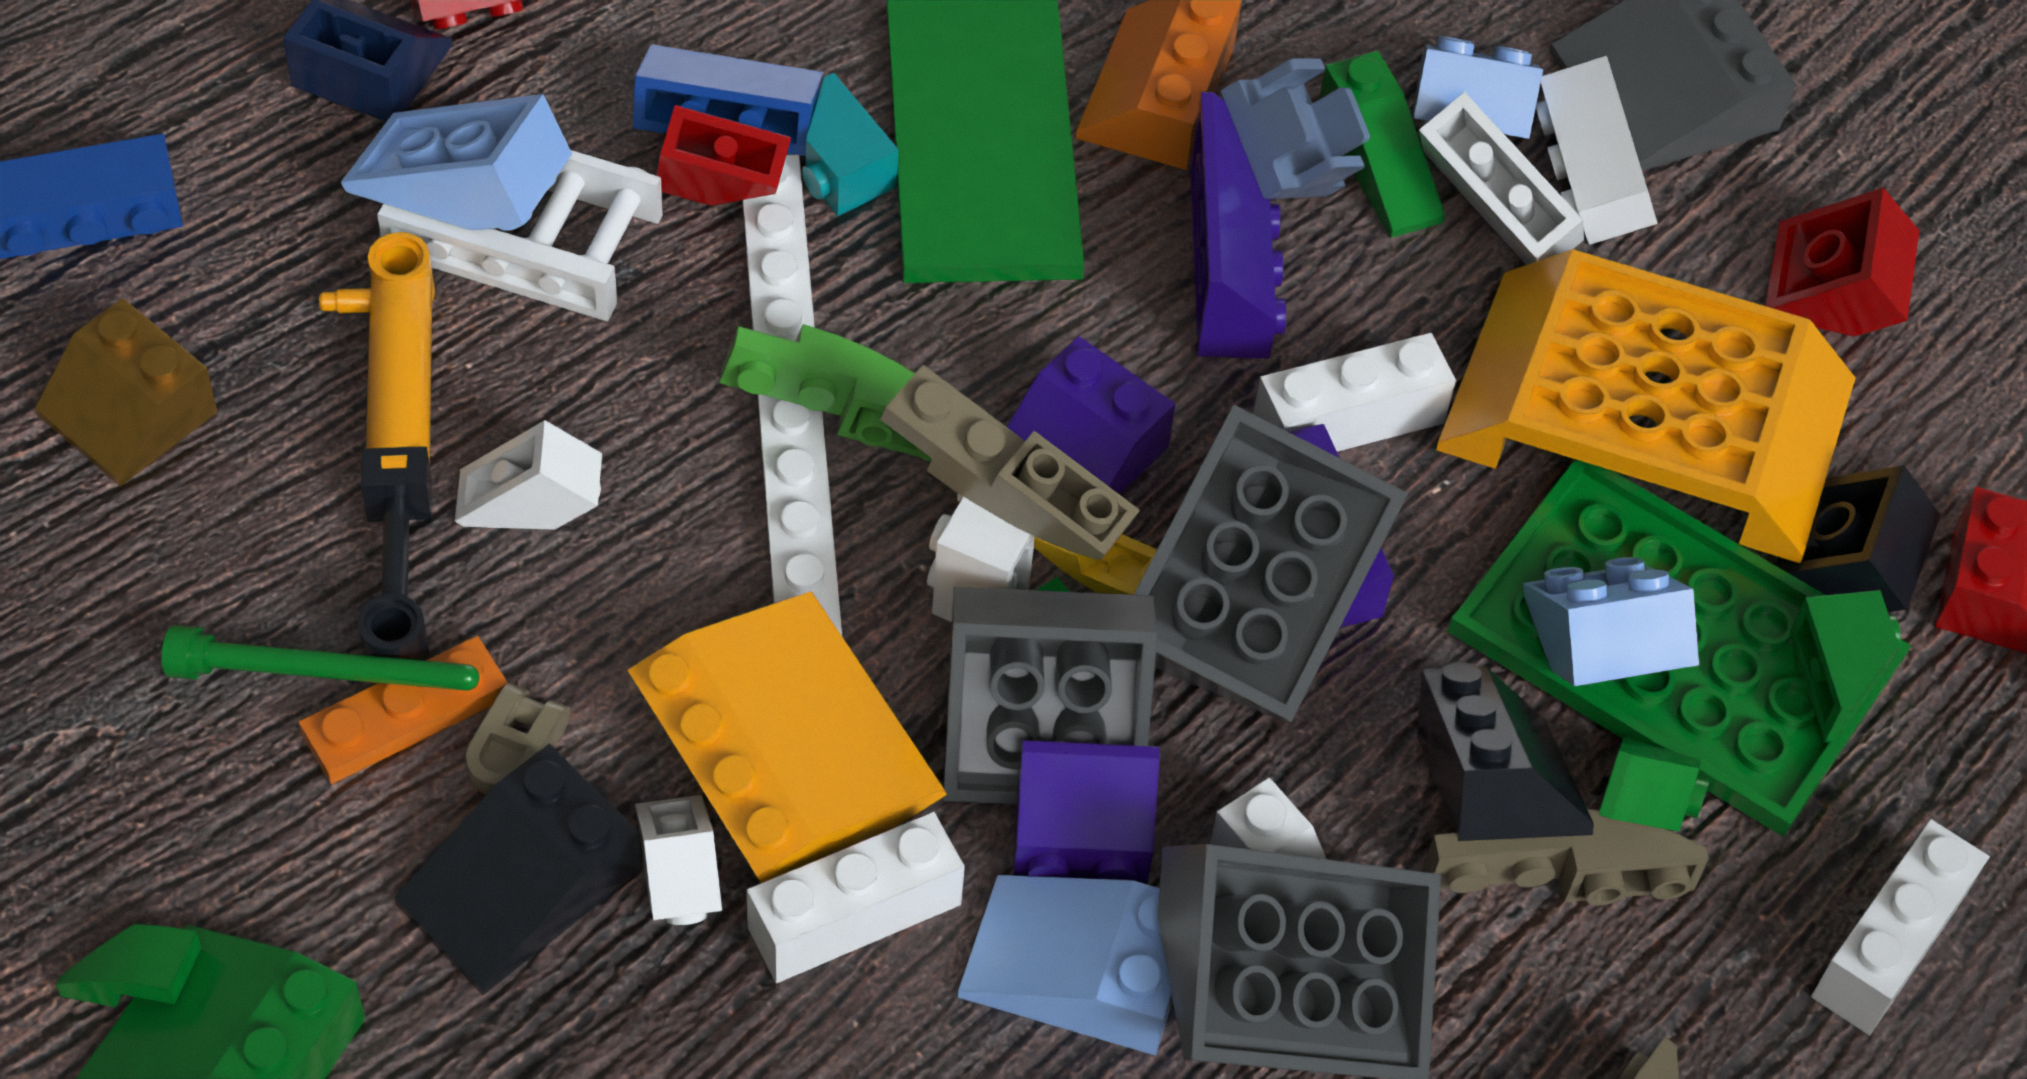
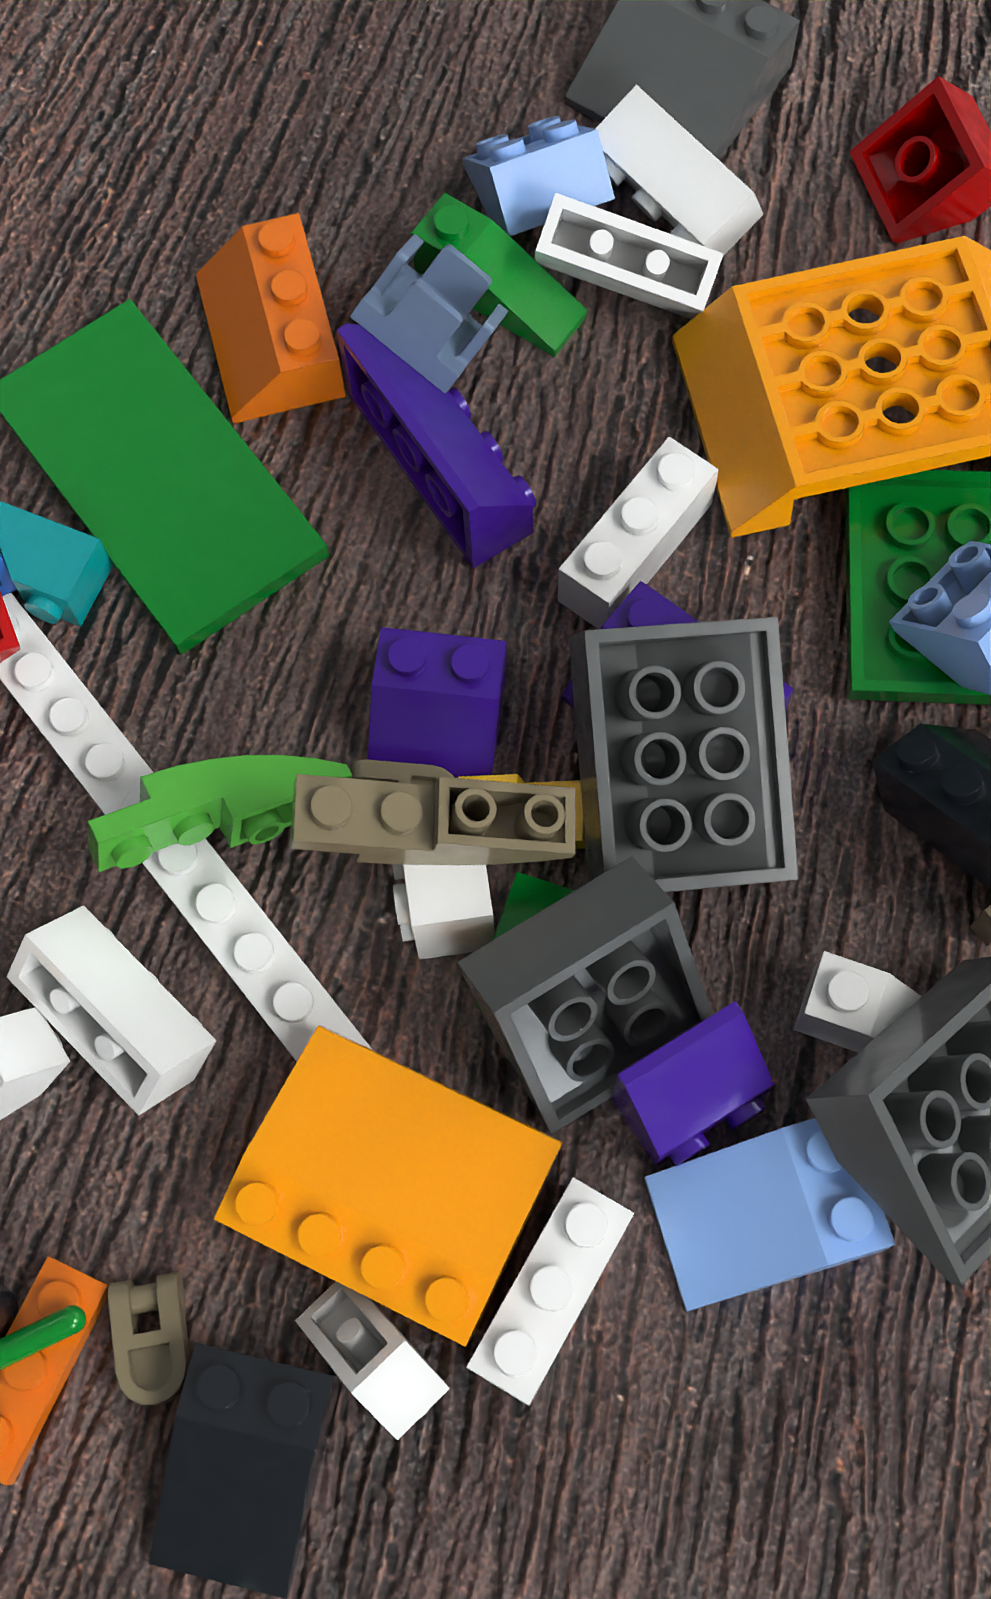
camera: 25 degrees left, 15 degrees up
(656, 487) = (110, 1008): none -> white brick

